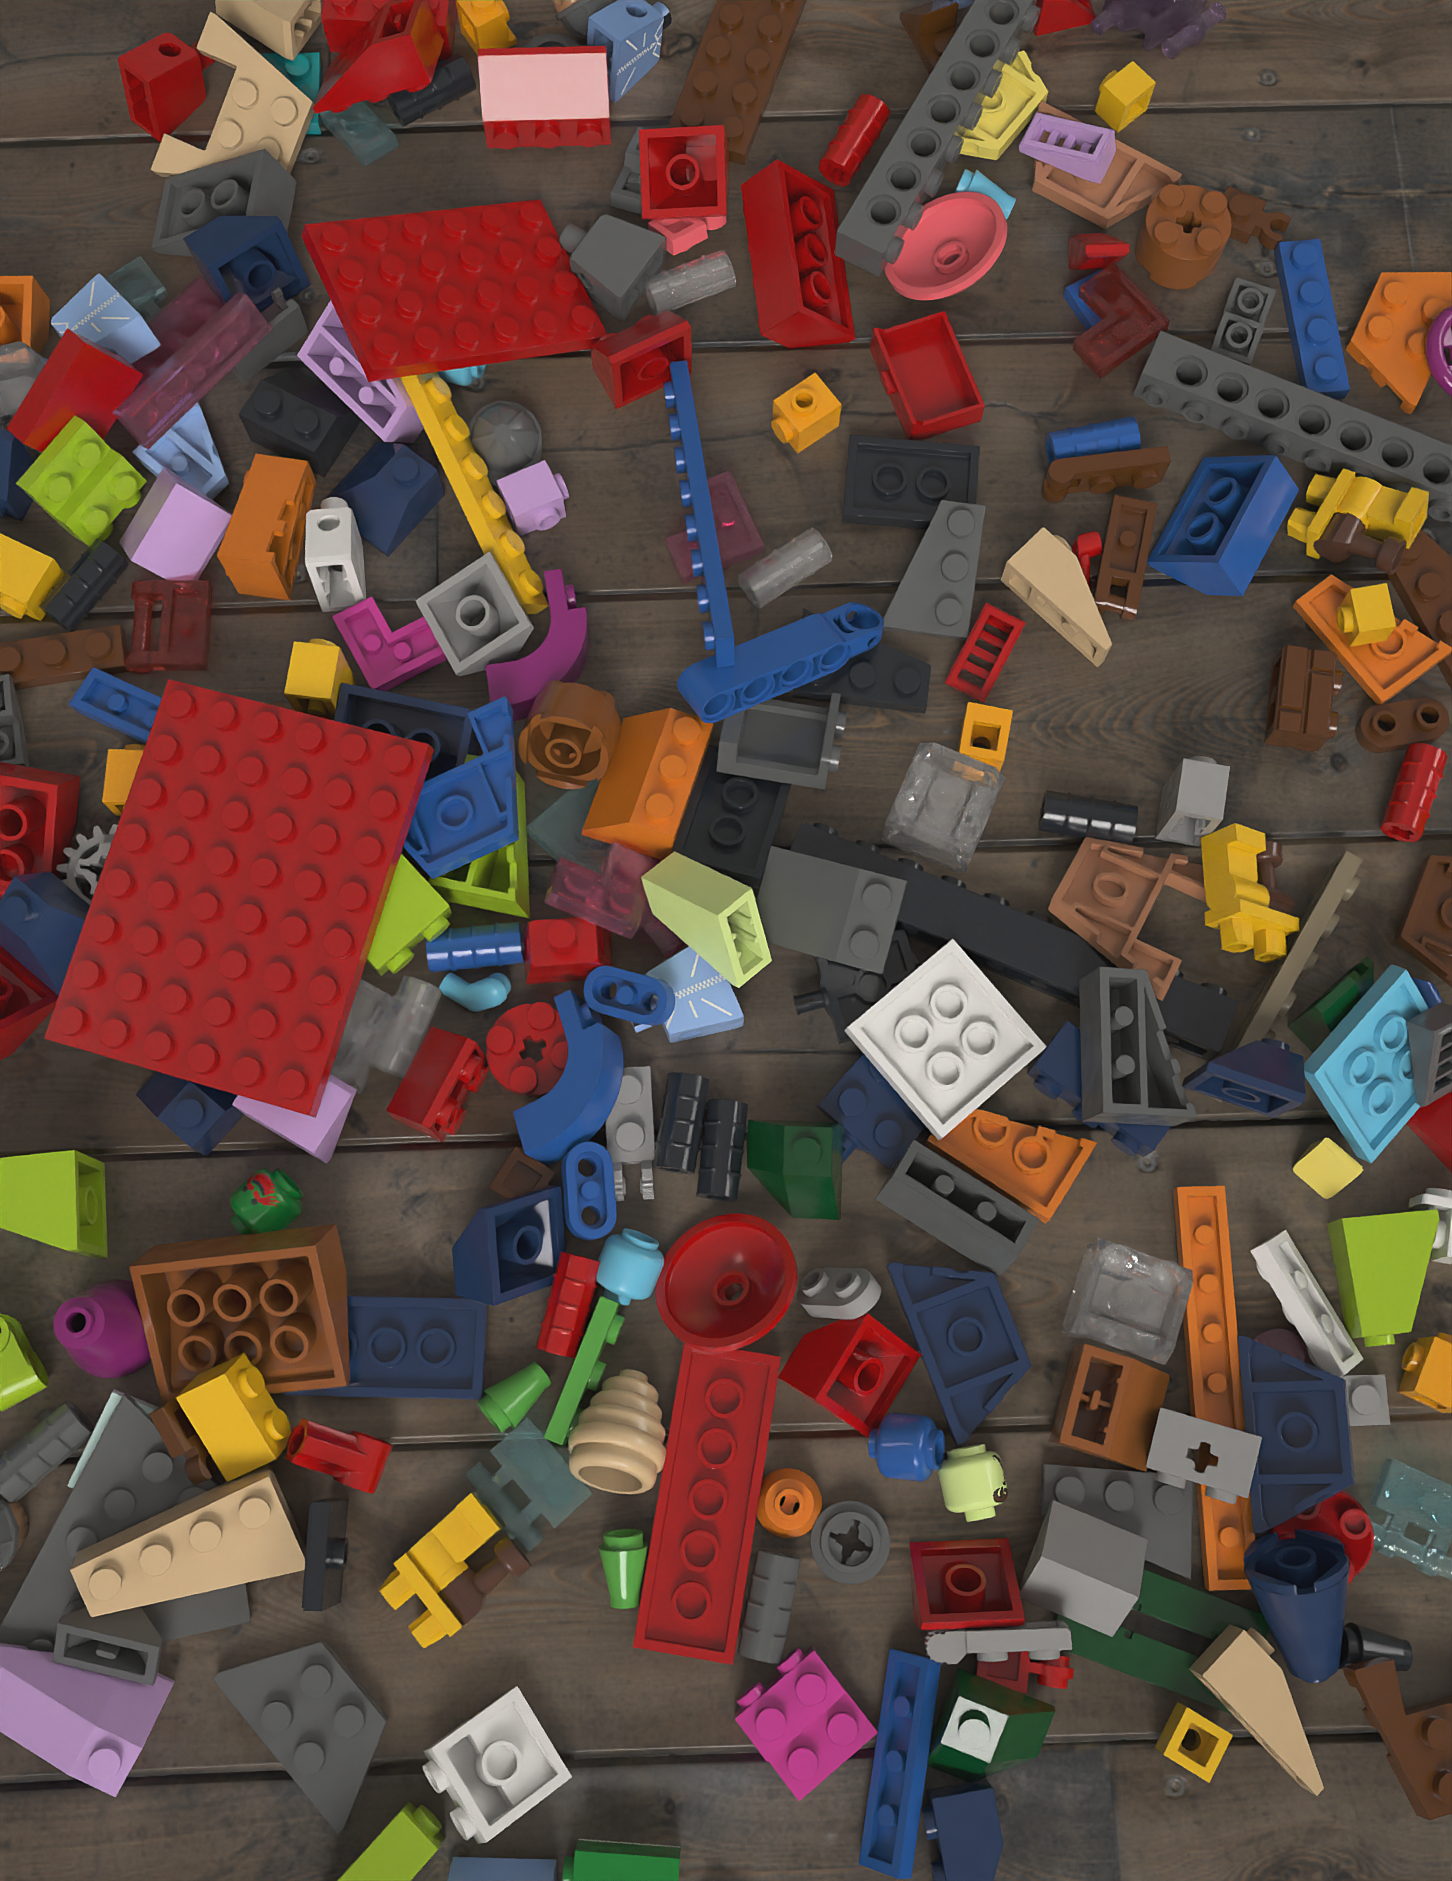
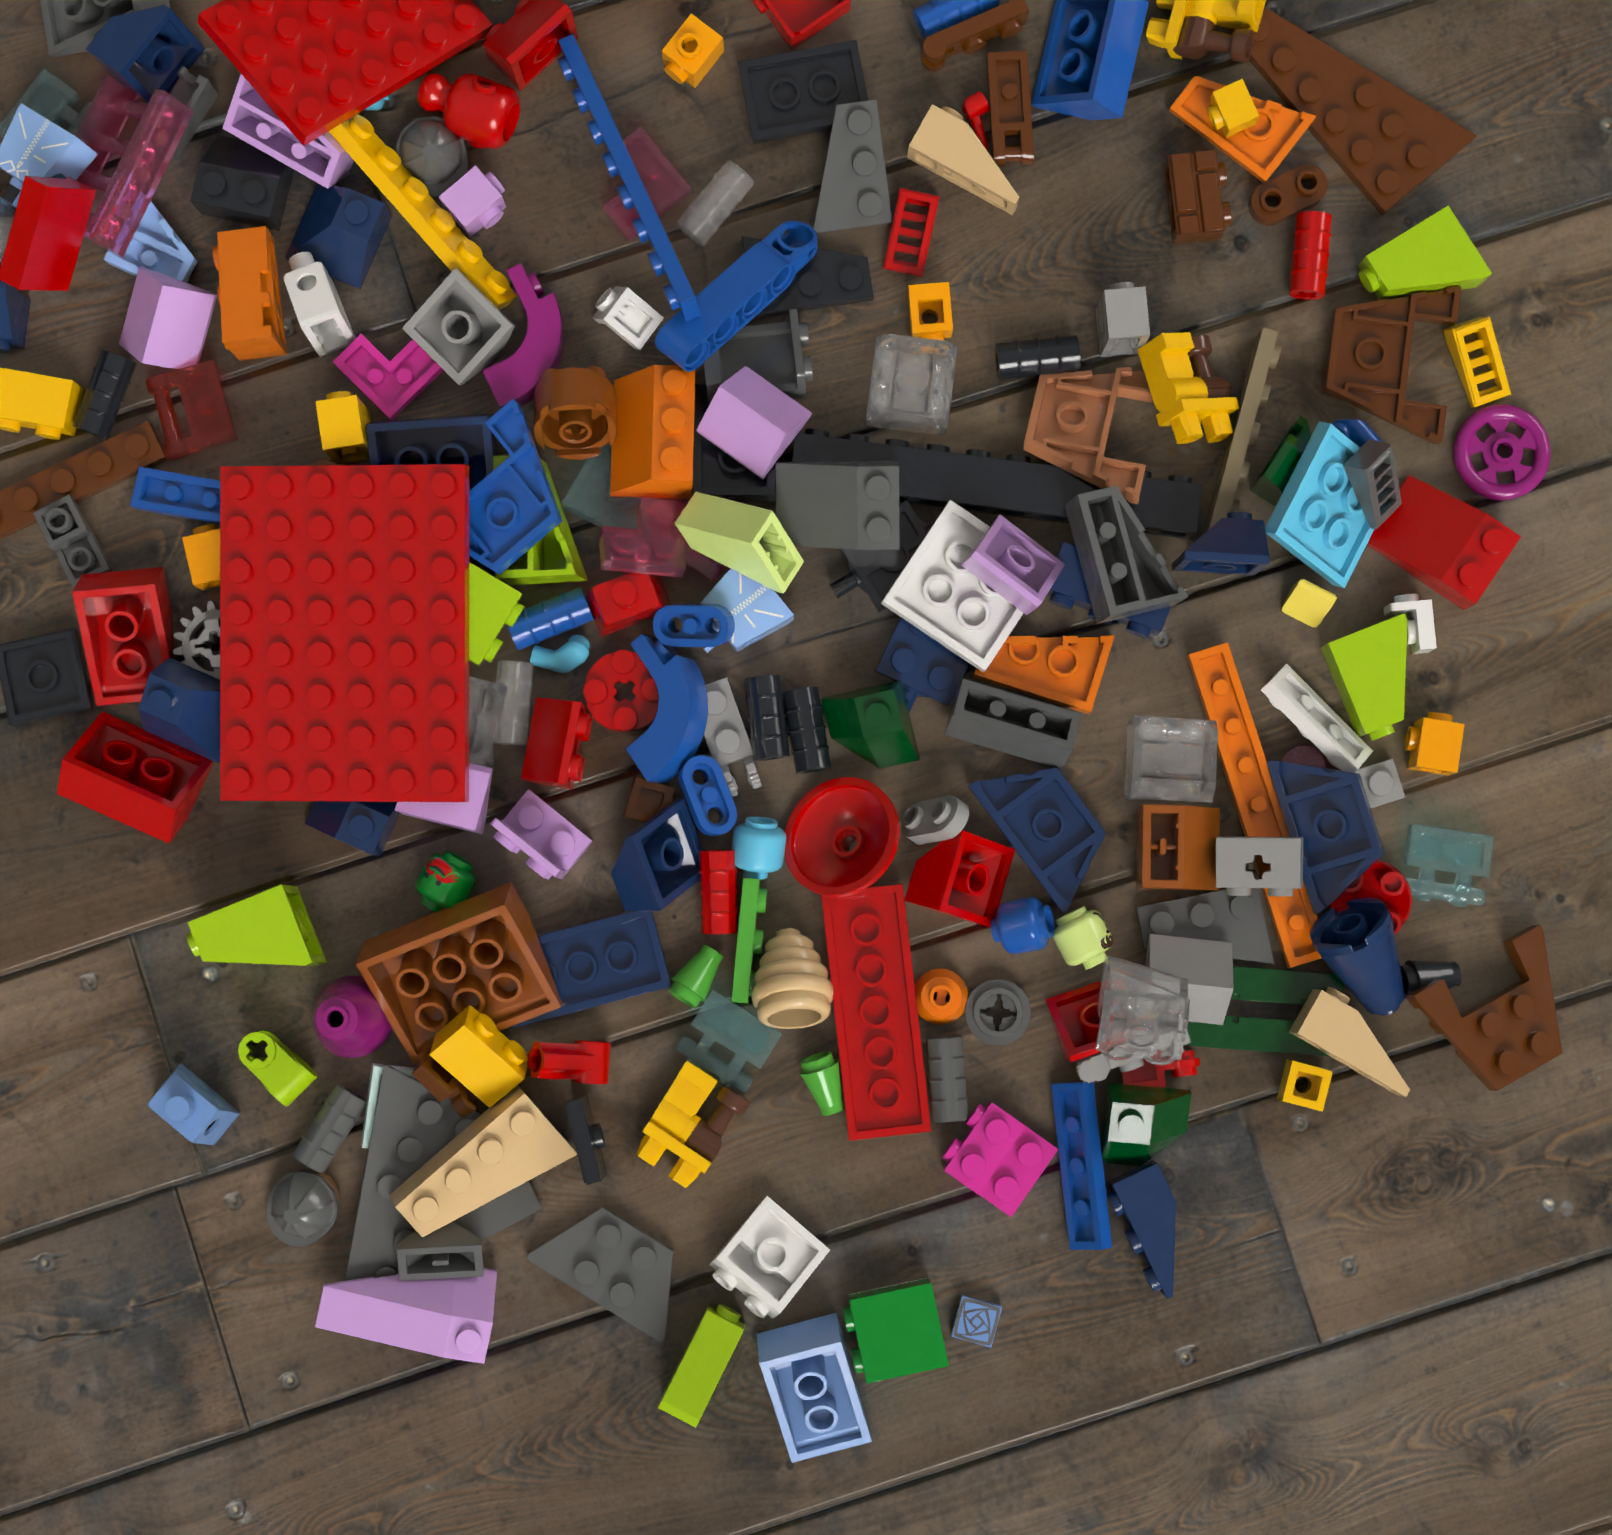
camera: 15 degrees left, 10 degrees up
(82, 482) = (74, 303): lime plate -> none
(390, 1183) = (542, 835): none -> lavender bracket
(561, 406) = (473, 108): none -> red piece
(657, 655) = (627, 315): none -> white bracket
(758, 794) = (752, 421): none -> lavender slope
(1004, 1029) = (1014, 565): none -> lavender slope
(1022, 1595) = (1141, 1012): none -> clear piece

